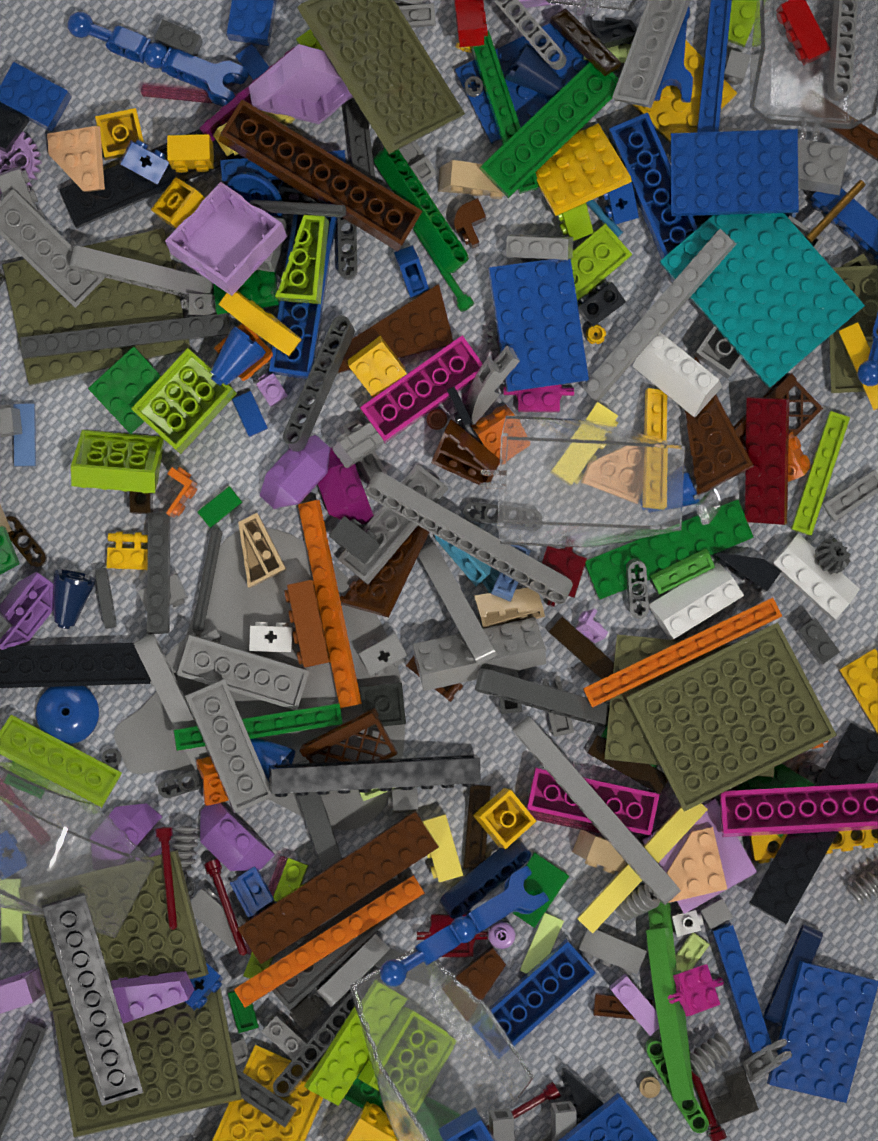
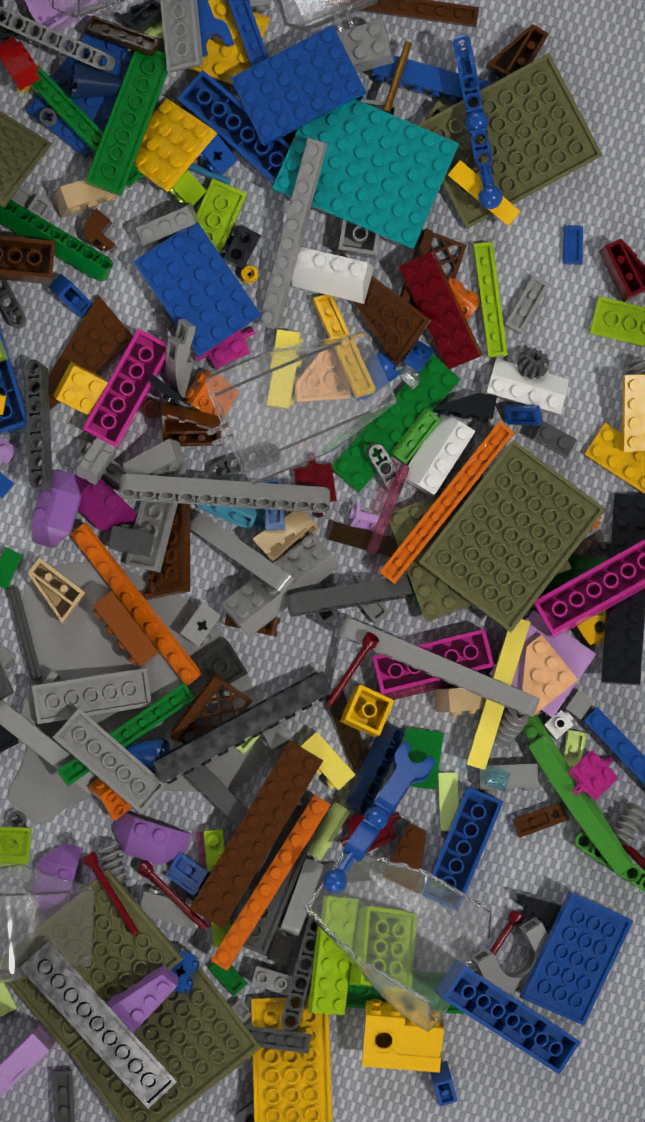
camera: 30 degrees left, 0 degrees up
(195, 775) = (99, 807): dark grey beam -> none
(258, 639) = (93, 664): white brick -> none
(410, 916) = (328, 830): none -> yellowish green tile
(418, 474) = (157, 460): none -> light grey brick
(464, 302) = (126, 299): green piece -> none
(499, 927) = (405, 804): lavender head -> none
(540, 753) = (369, 642): none -> dark red piece
(601, 948) = (497, 779): none -> clear light blue brick
(625, 626) = (388, 509): none -> clear pink axle
(636, 1003) = (549, 811): lavender slope -> none
(642, 773) = (460, 619): dark brown tile -> none
(649, 1087) = (594, 874): tan plate -> none
(723, 495) = (419, 356): none -> blue plate
(798, 602) = (523, 414): none -> blue plate

